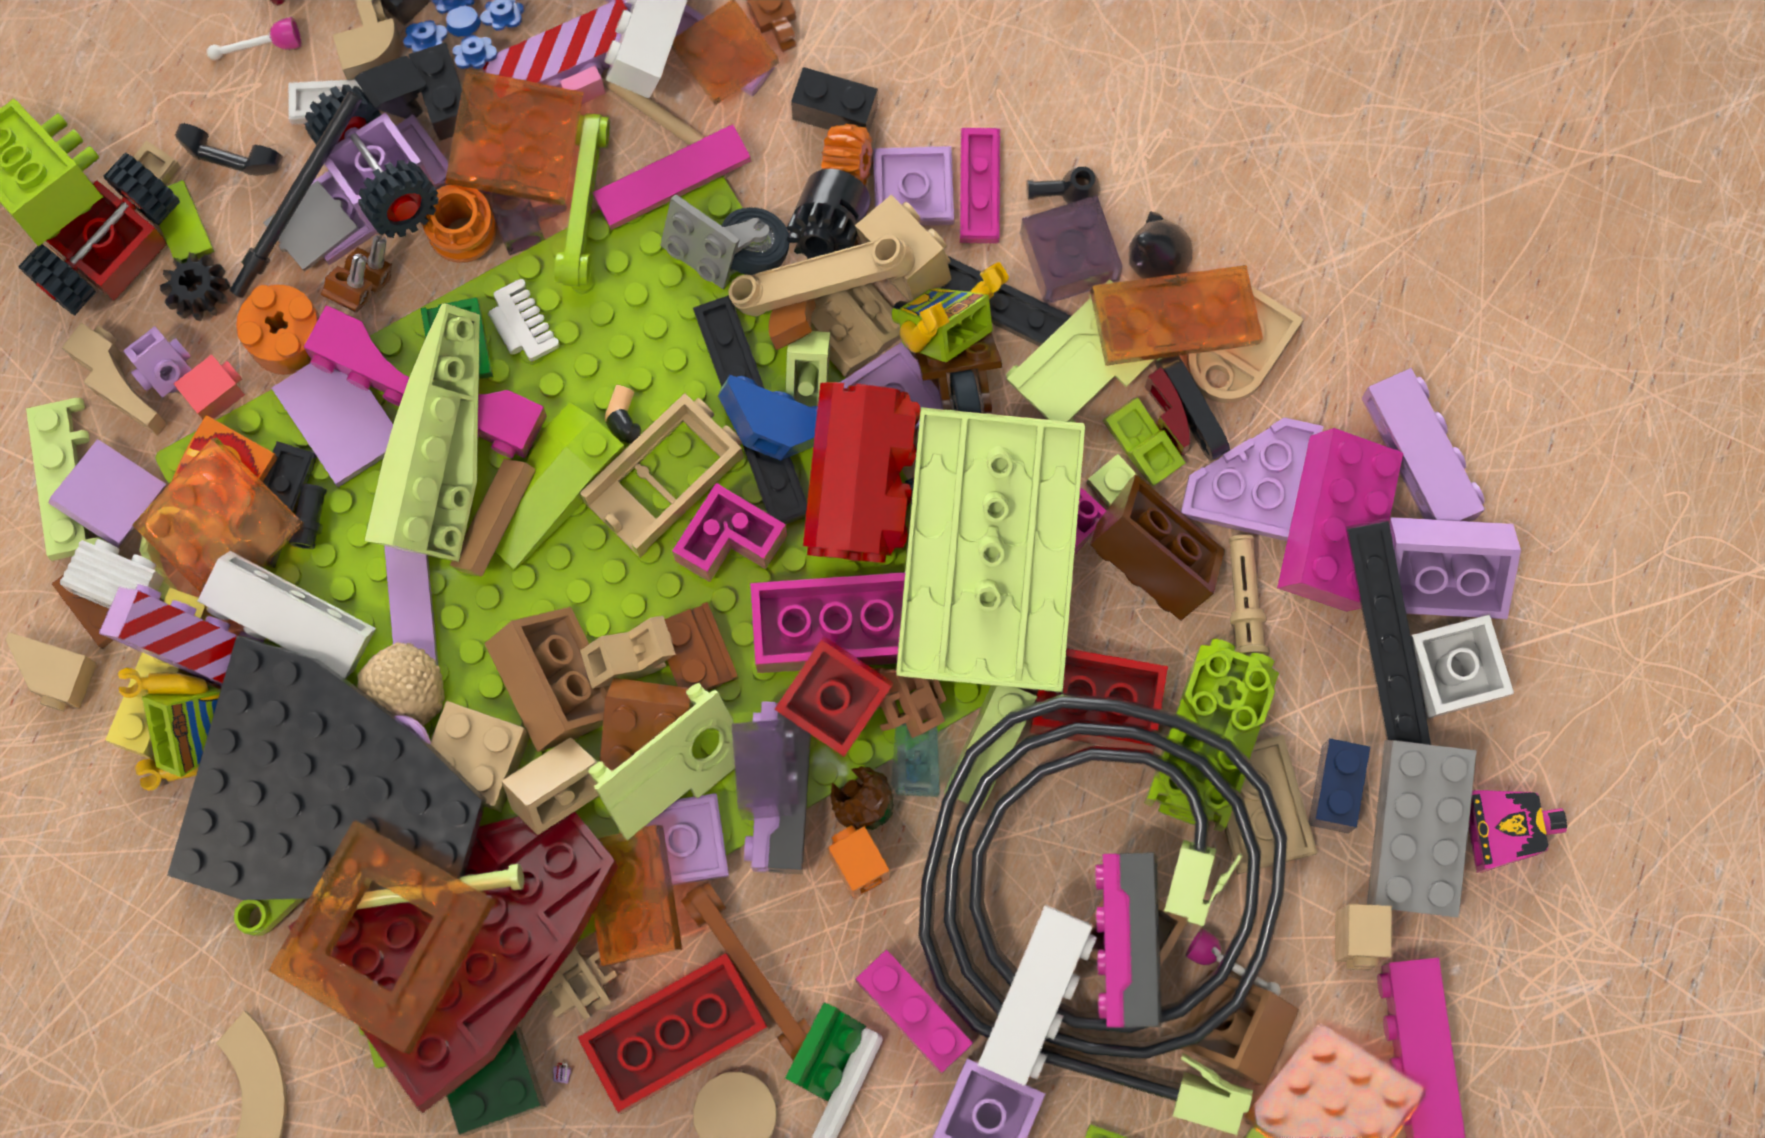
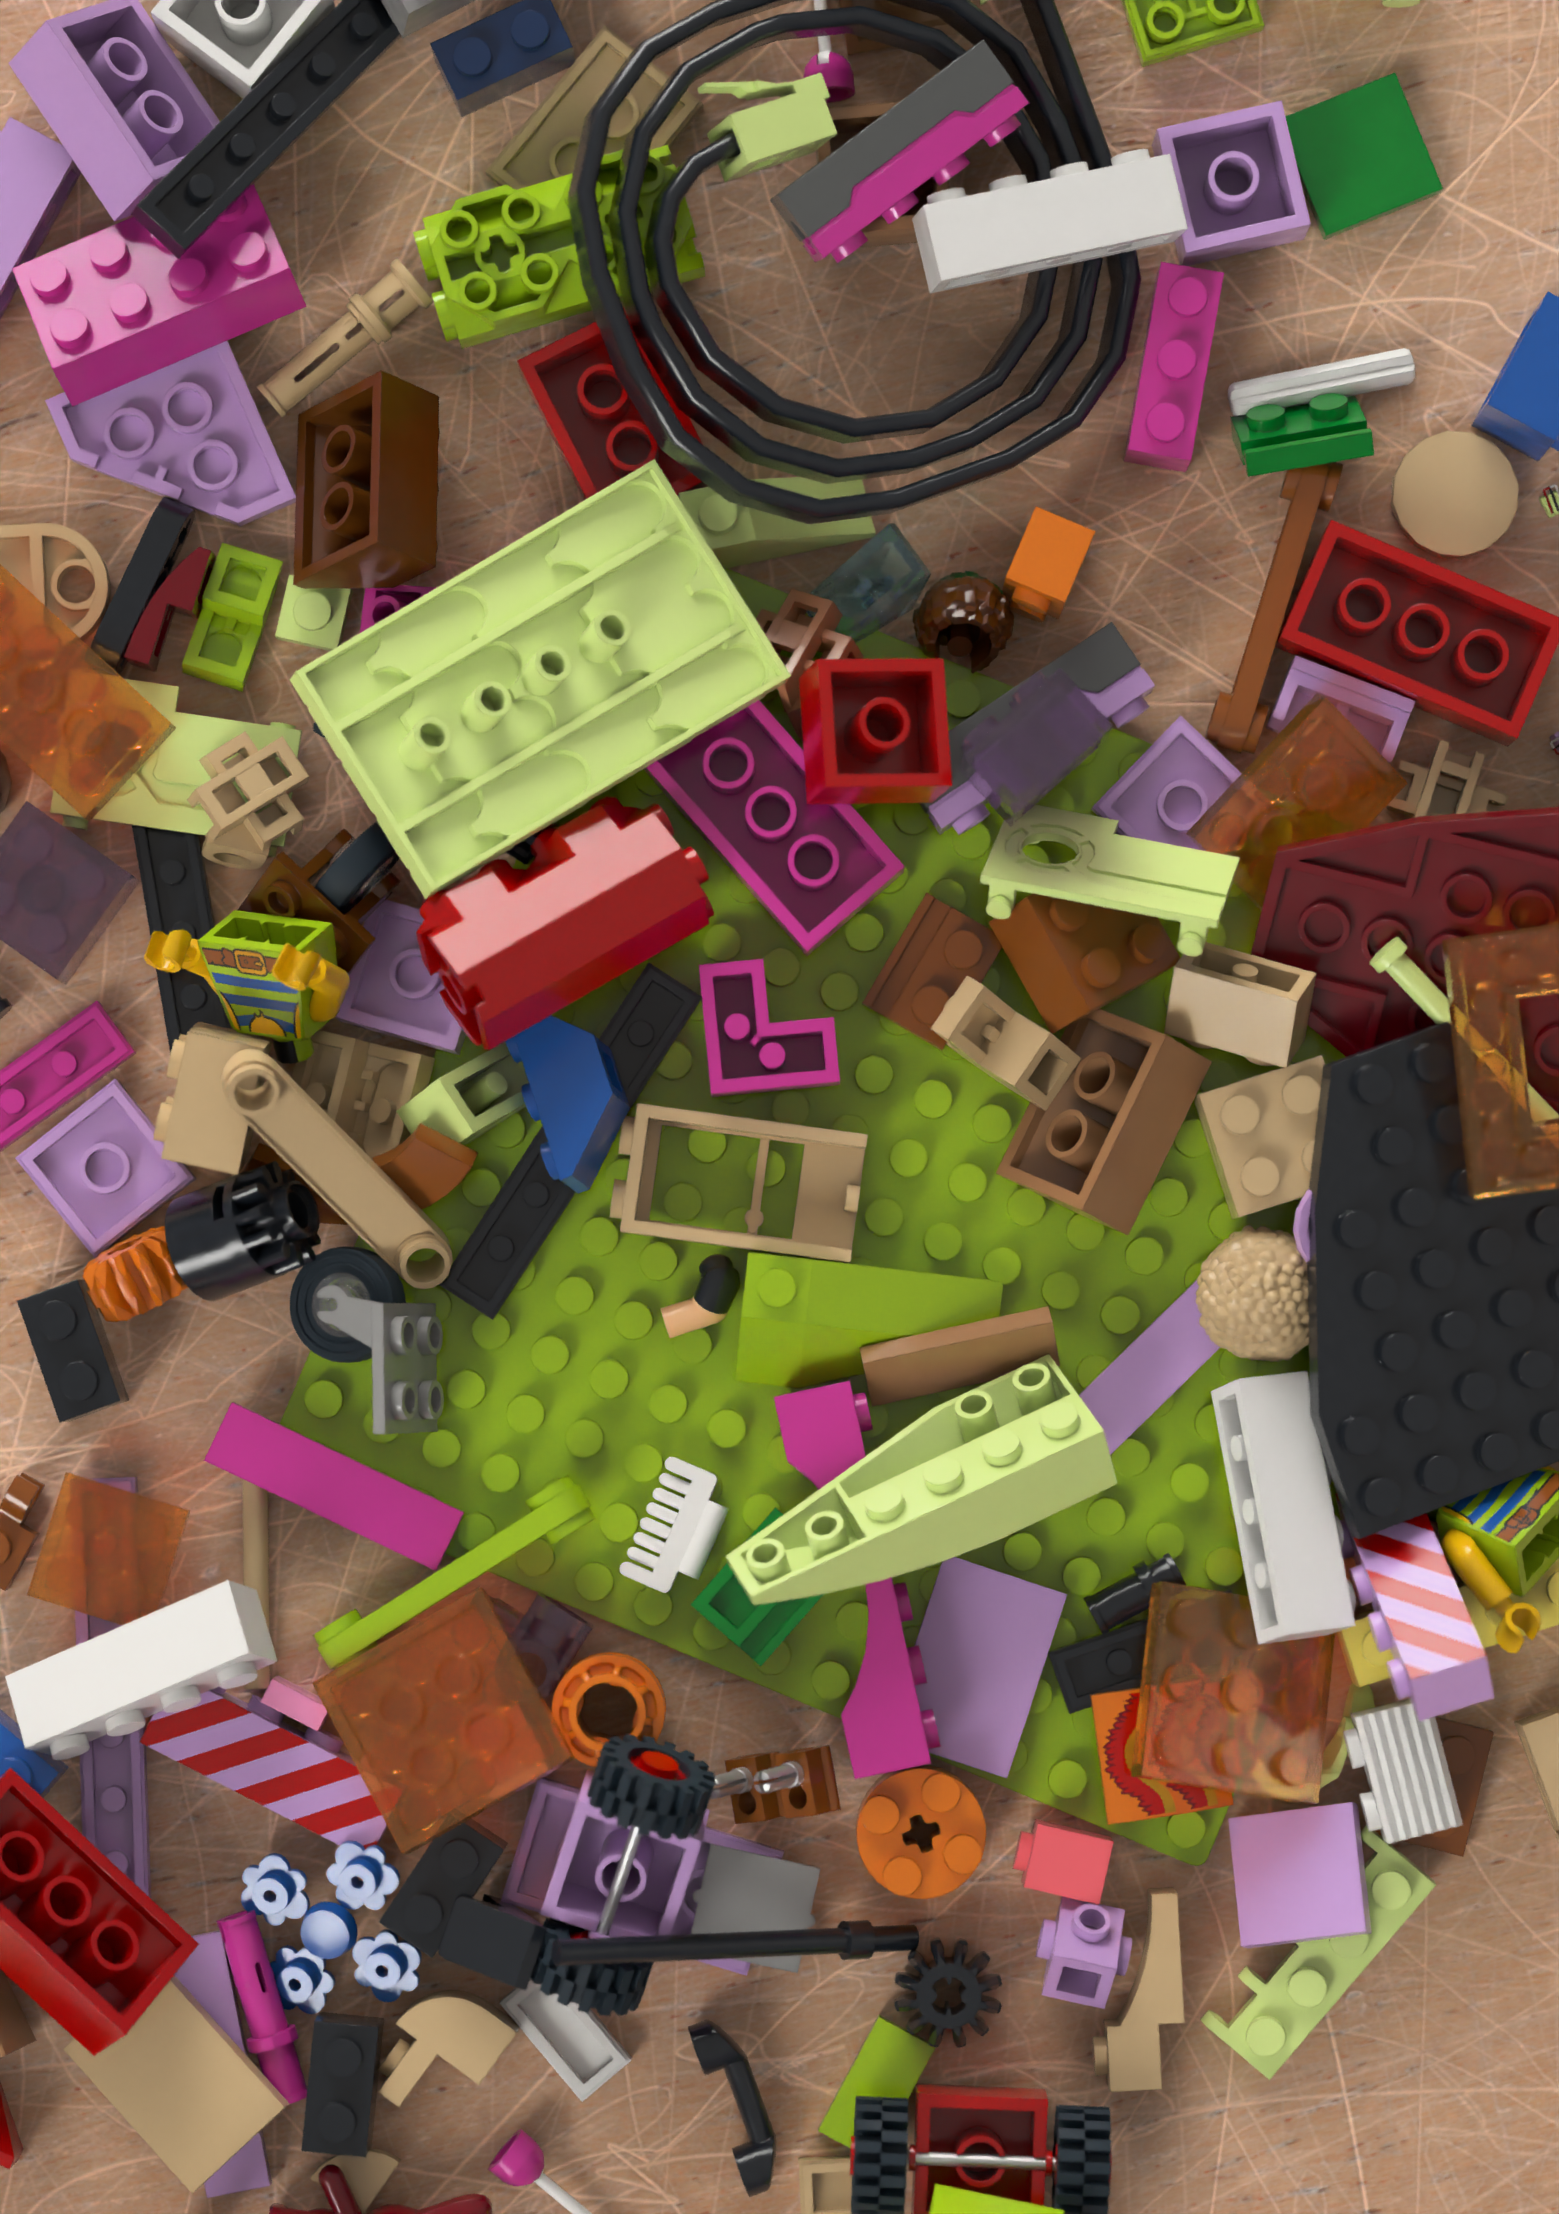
camera: 125 degrees left, 10 degrees up
(656, 972) = (1370, 709): none -> lavender hinge
(1047, 373) = (263, 782): none -> tan piece

